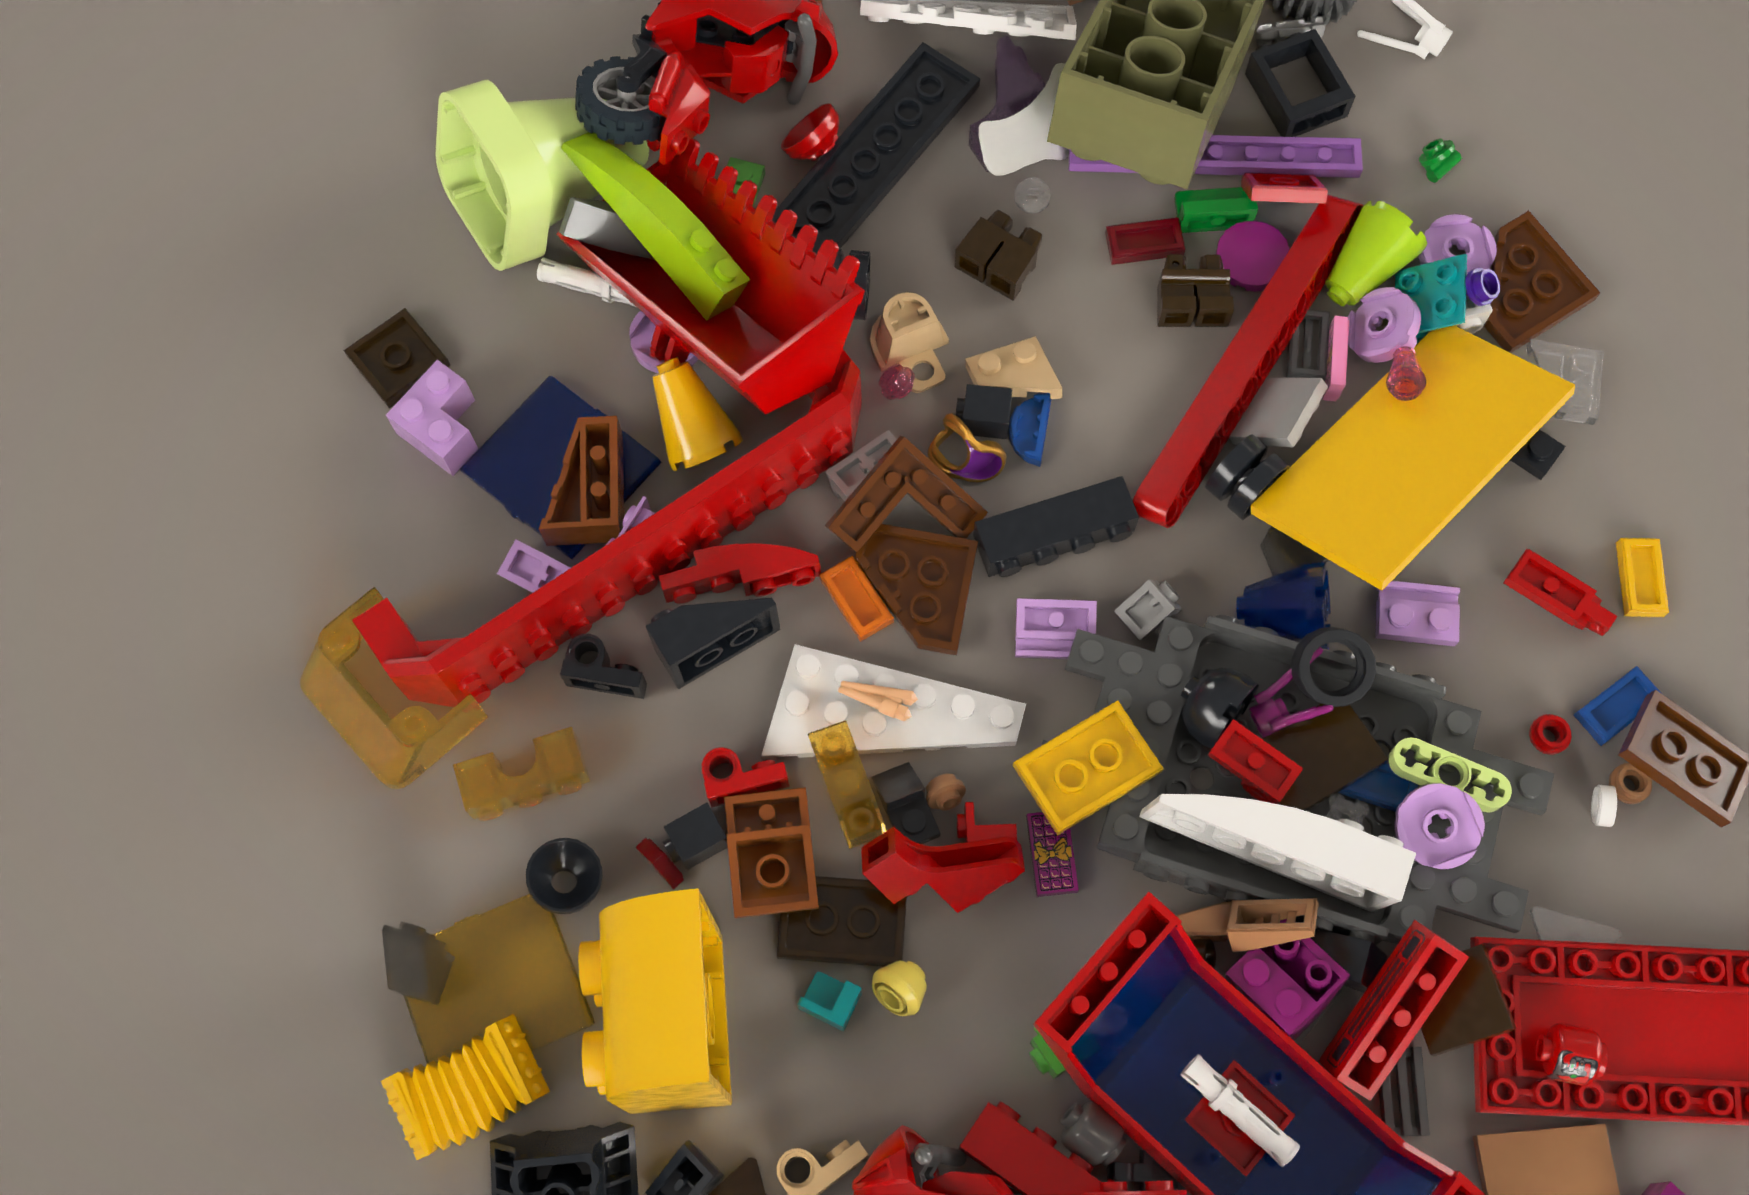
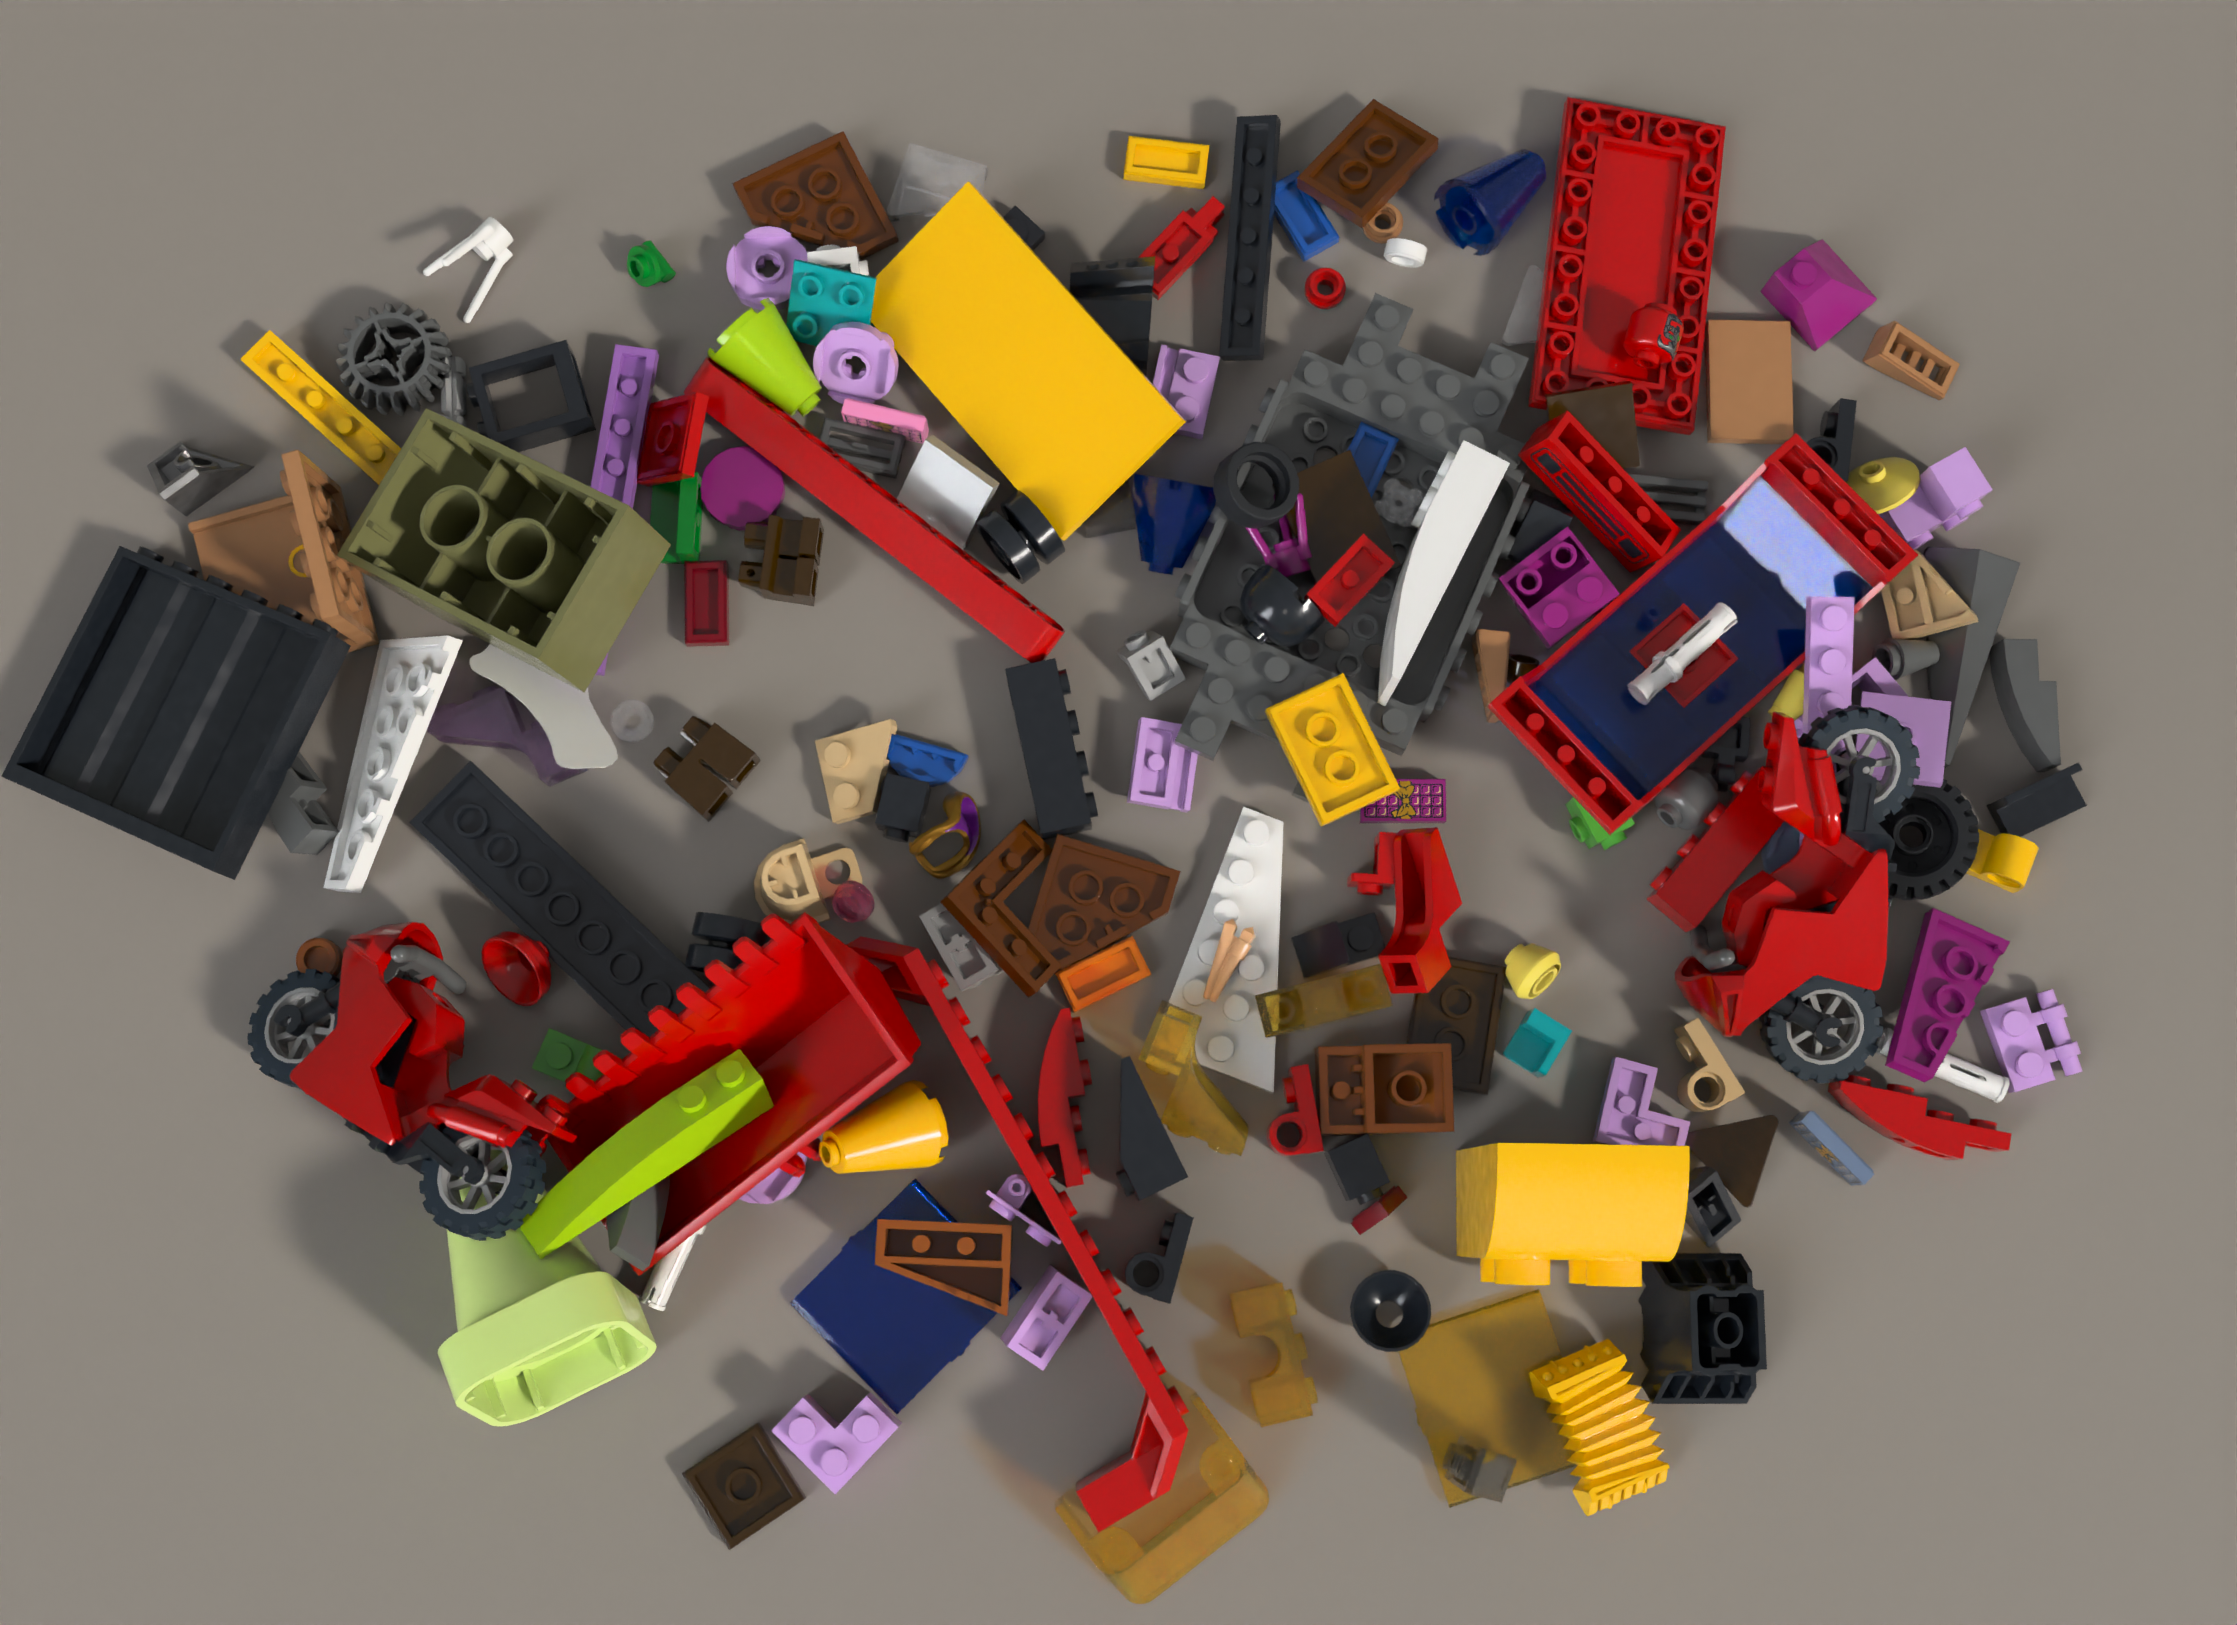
camera: 90 degrees left, 10 degrees up
(747, 681) = (1195, 1102): none -> clear yellow arch
(762, 1095) = (1625, 1111): none -> lavender plate
(945, 792) = (1332, 902): medium nougat plate -> none
(1258, 925) = (1522, 607): medium nougat slope -> none
(1405, 376) = (928, 351): clear pink cone -> none
(1423, 754) = (1378, 362): yellowish green beam -> none
(1461, 837) = (1406, 416): lavender plate -> none
(1479, 541) = (1119, 300): none -> black slope
(1482, 286) = (833, 251): dark purple plate -> none
(1584, 655) = (1250, 238): none -> black plate
(1683, 883) = (1488, 200): none -> clear blue cone

